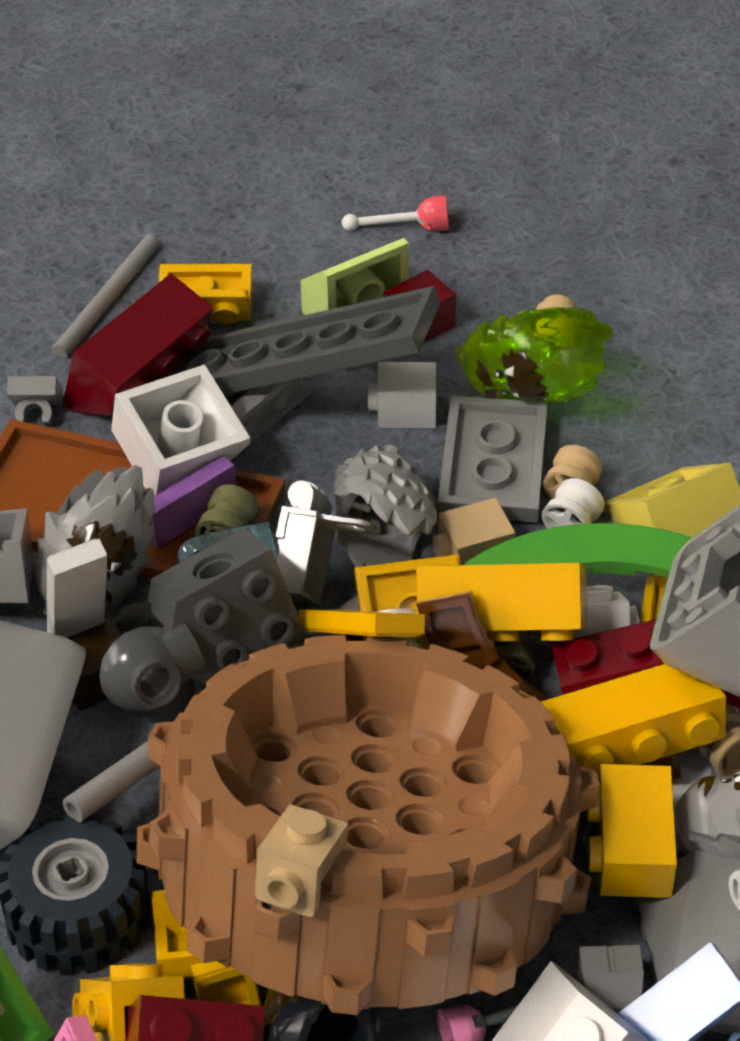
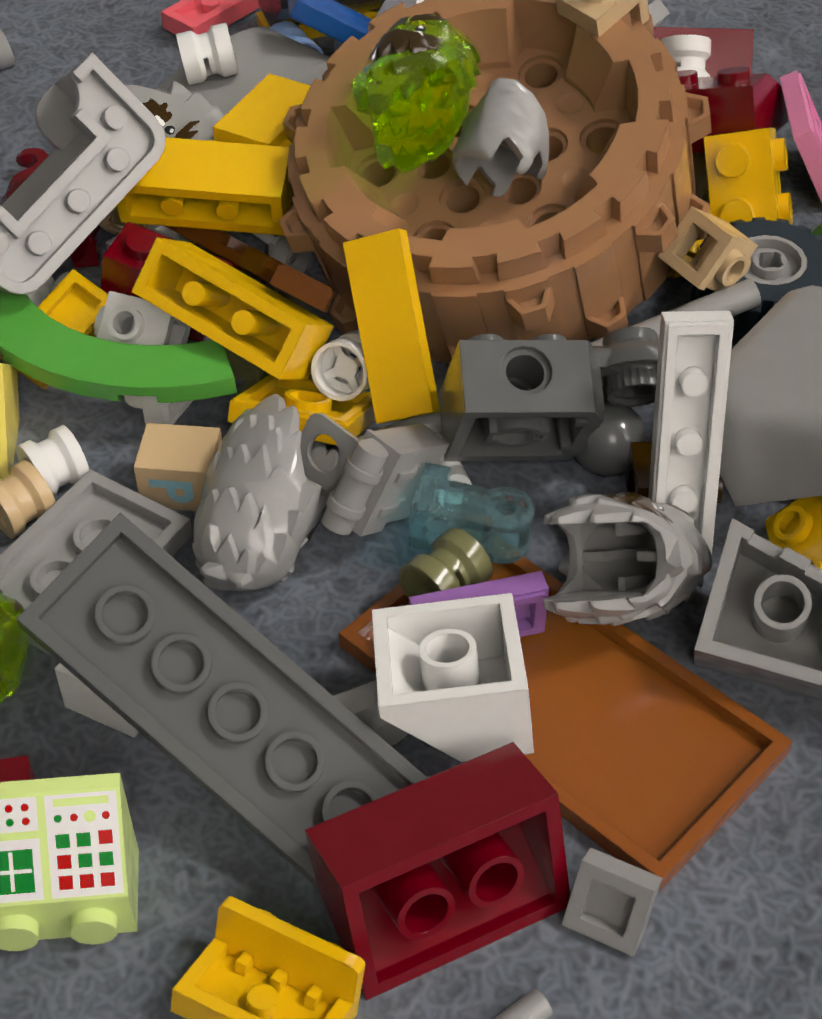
camera: 155 degrees left, 0 degrees up
(117, 797) = (721, 258): none -> tan brick
(337, 726) = (503, 137): none -> light grey hair
(441, 718) = (417, 89): none -> clear neon green head

